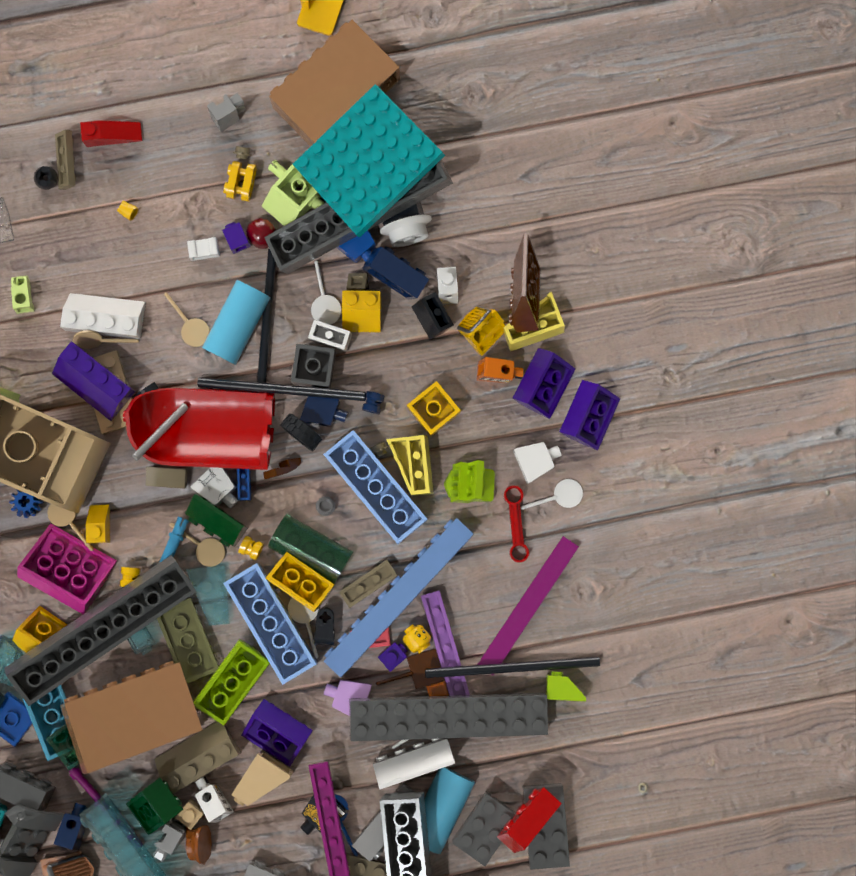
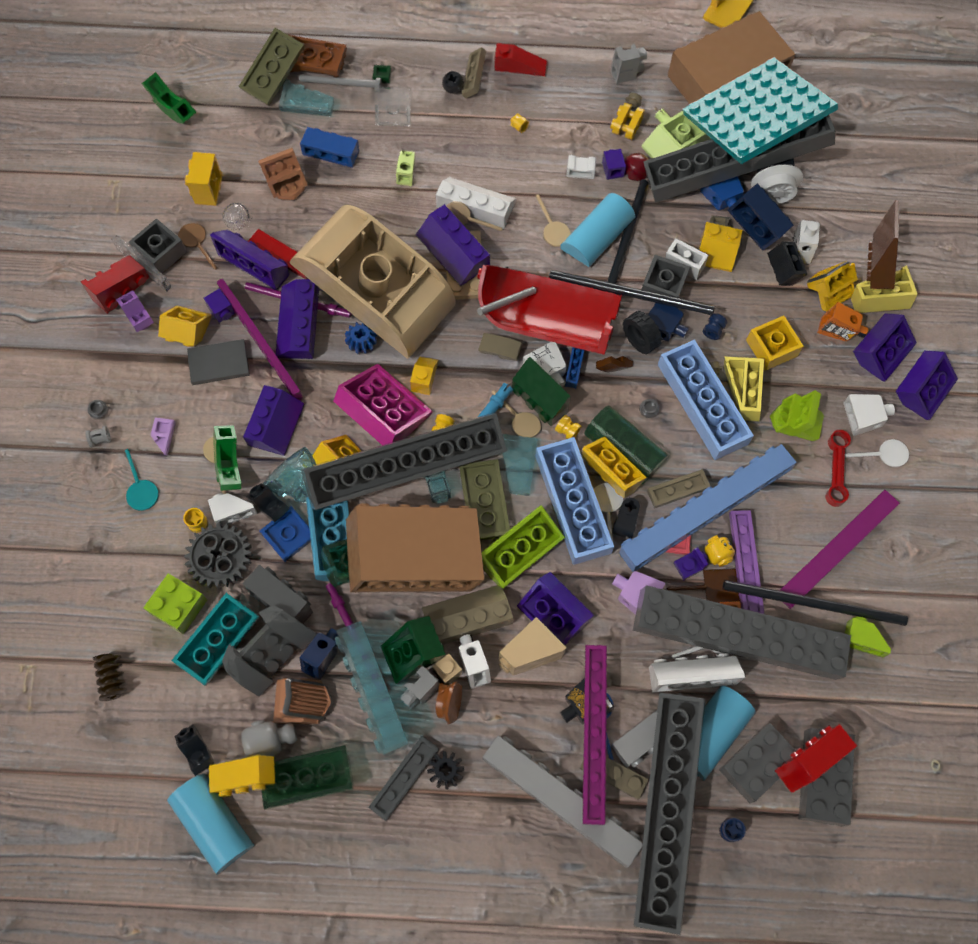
camera: 10 degrees right, 15 degrees down
(63, 517) = (391, 359): tan piece -> none
(325, 307) = (684, 235): white piece -> none

